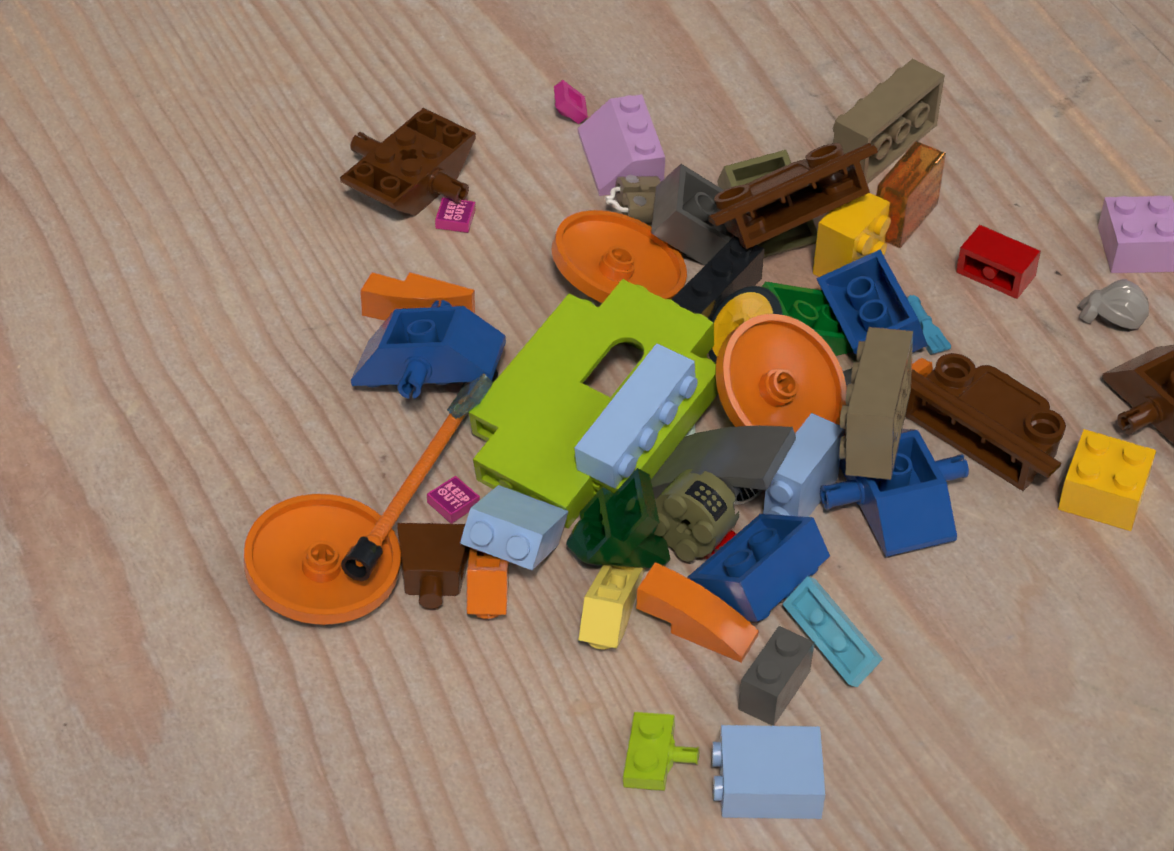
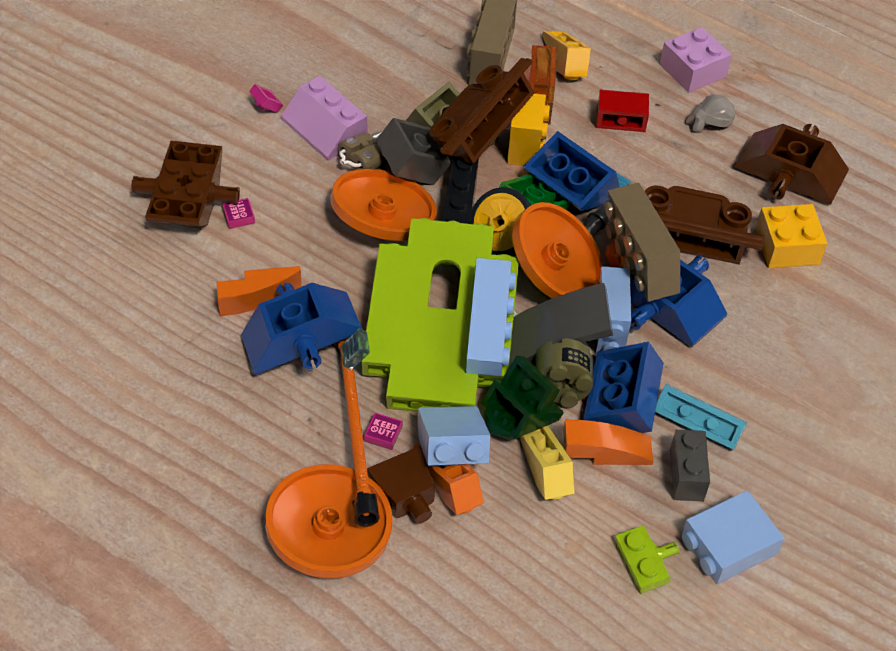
camera: 30 degrees left, 5 degrees up
(975, 173) = (572, 54): none -> yellow slope

